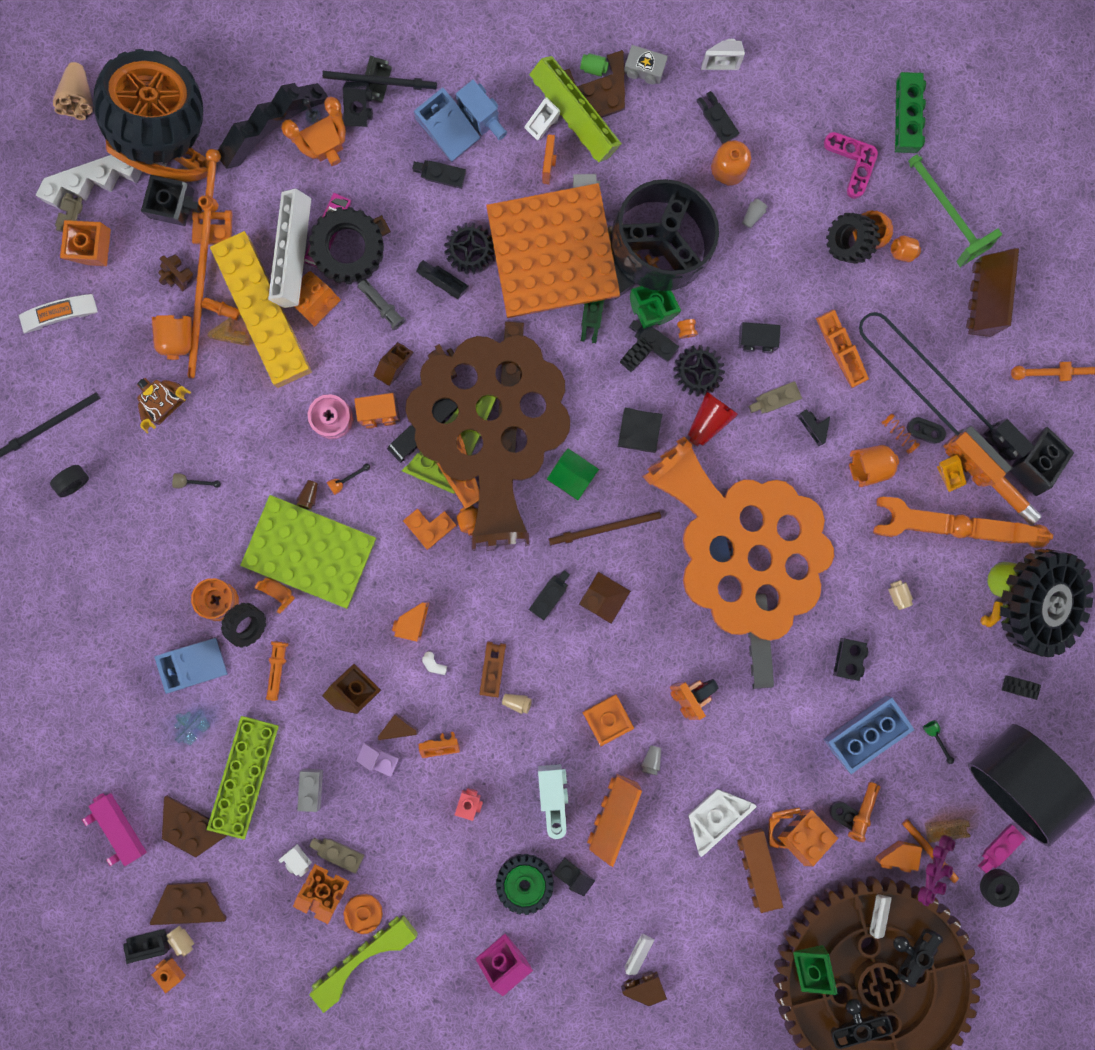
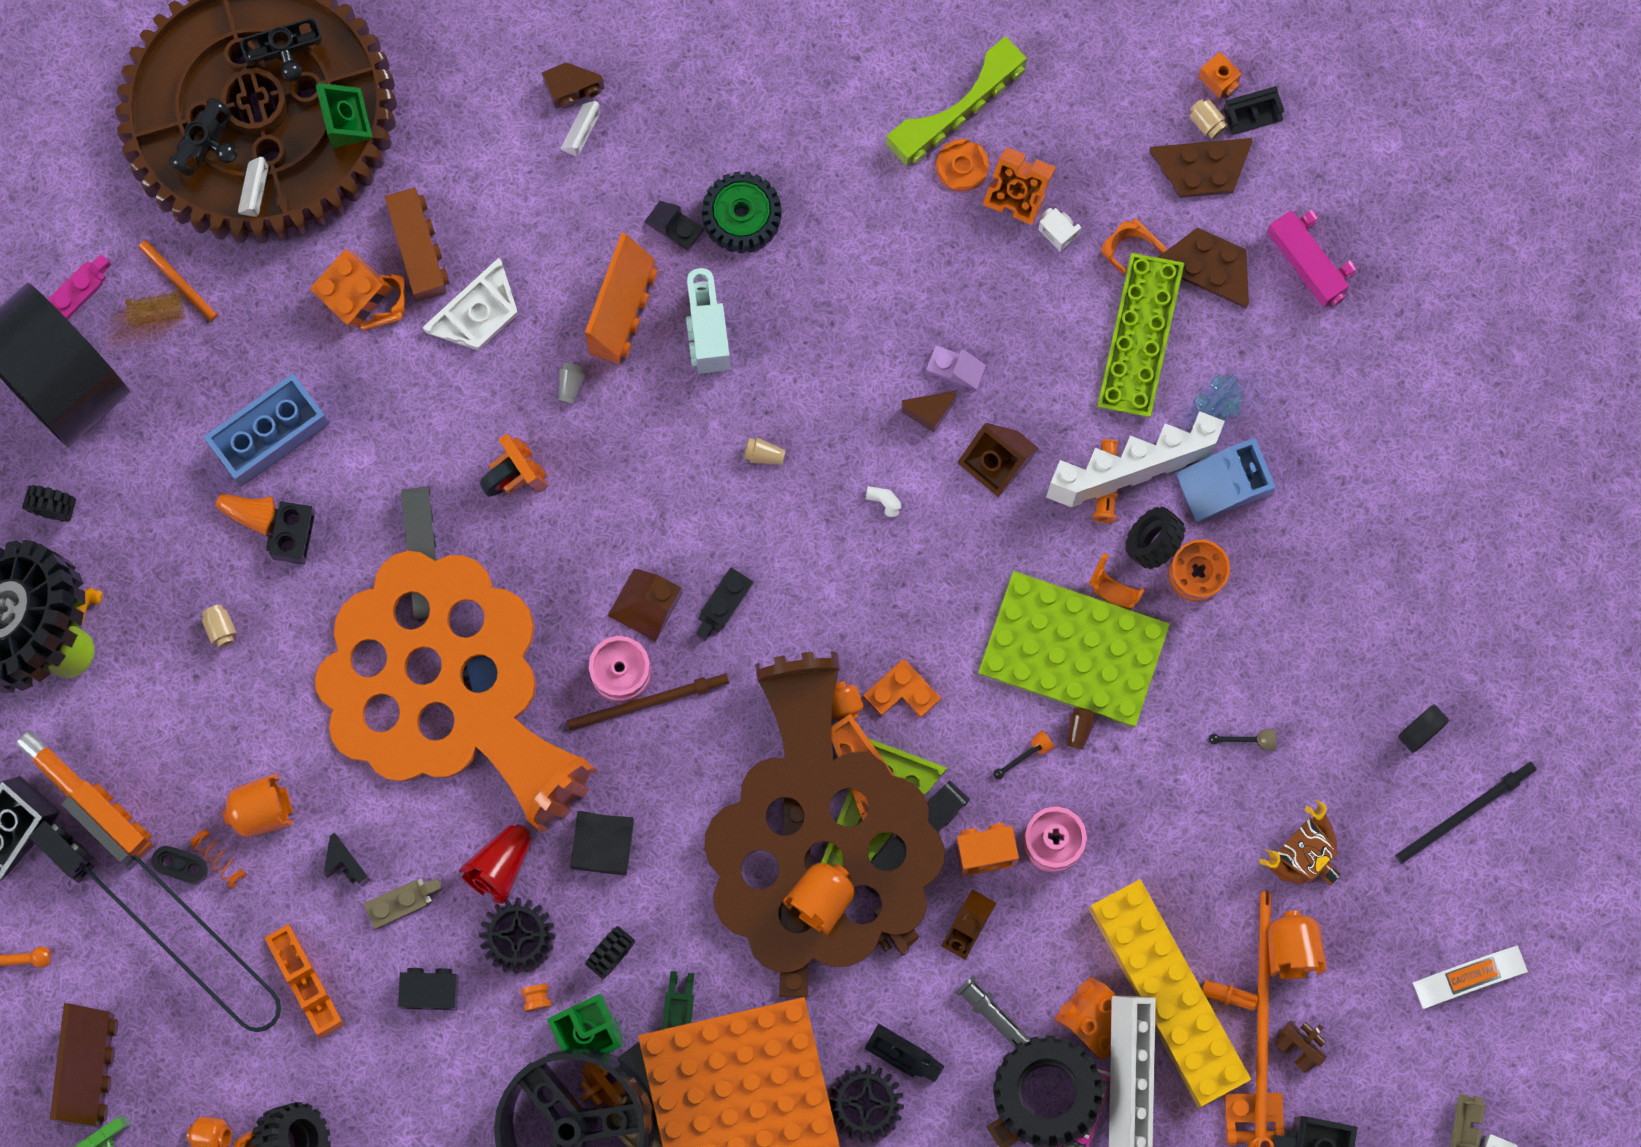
camera: 175 degrees left, 10 degrees down
(85, 242) = (1437, 1079): orange slope -> none
(224, 333) = (1220, 955): clear yellow slope -> none
(245, 858) = (1127, 230): none -> orange helmet
(252, 681) = (1137, 464): none -> white brick
(310, 790) = (1045, 322): light grey brick -> none
(338, 854) = (1002, 241): dark tan hinge -> none
(411, 623) = (919, 550): orange slope -> none
(437, 748) = (881, 385): orange plate -> none
(468, 804) = (824, 312): coral brick -> none
(491, 378) = (821, 896): none -> orange cylinder
(492, 670) = (800, 495): dark orange plate -> none
(503, 965) = (765, 107): dark pink slope -> none
(572, 474) = (697, 777): green slope -> none
(608, 720) = (634, 435): orange plate -> none
(612, 549) = (623, 685): none -> bright pink wheel
(662, 345) = (582, 979): black hinge -> none
(846, 816) = (294, 321): black plate -> none
(862, 821) = (275, 314): orange pin -> none
(880, 676) = (252, 513): none -> orange piece
(901, 855) = (220, 272): orange slope -> none
(933, 730) = (171, 440): hinge -> none
(935, 872) = (178, 247): magenta plant -> none
(952, 473) = (143, 802): light orange slope -> none
(958, 525) = (134, 726): orange piece -> none
(1006, 895) = (92, 246): black tyre -> none

